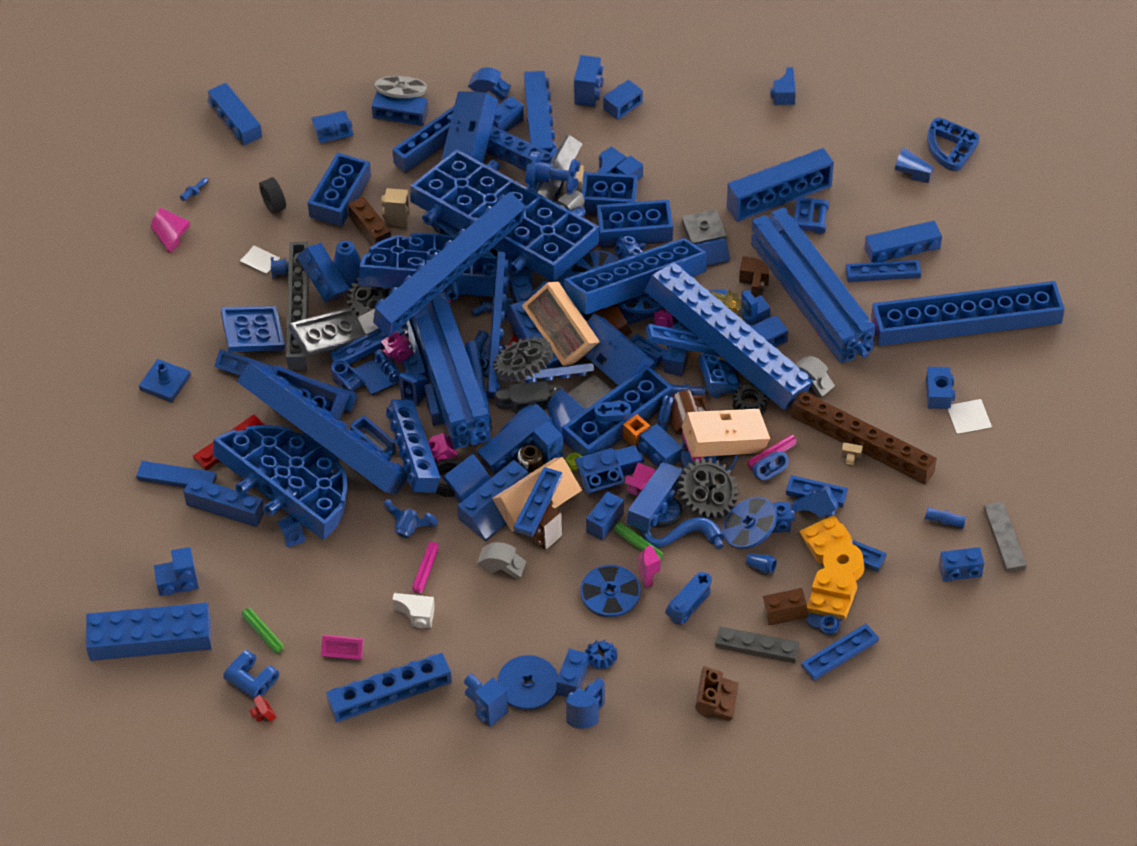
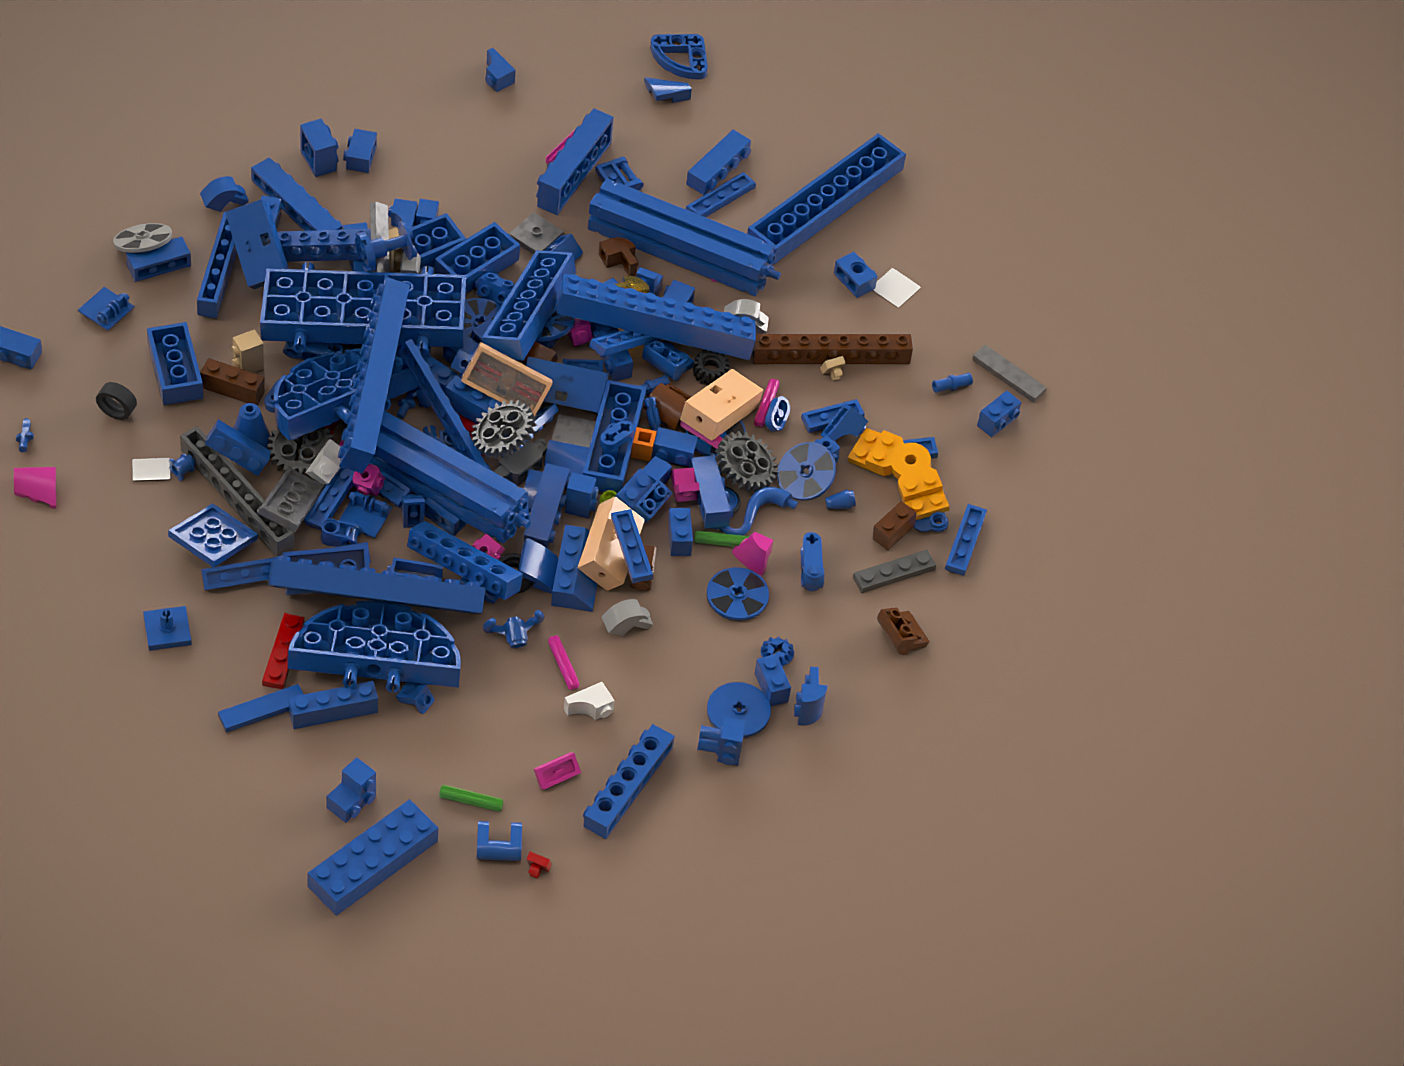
camera: 45 degrees left, 0 degrees up
(530, 458) = (574, 515): dark brown head -> none

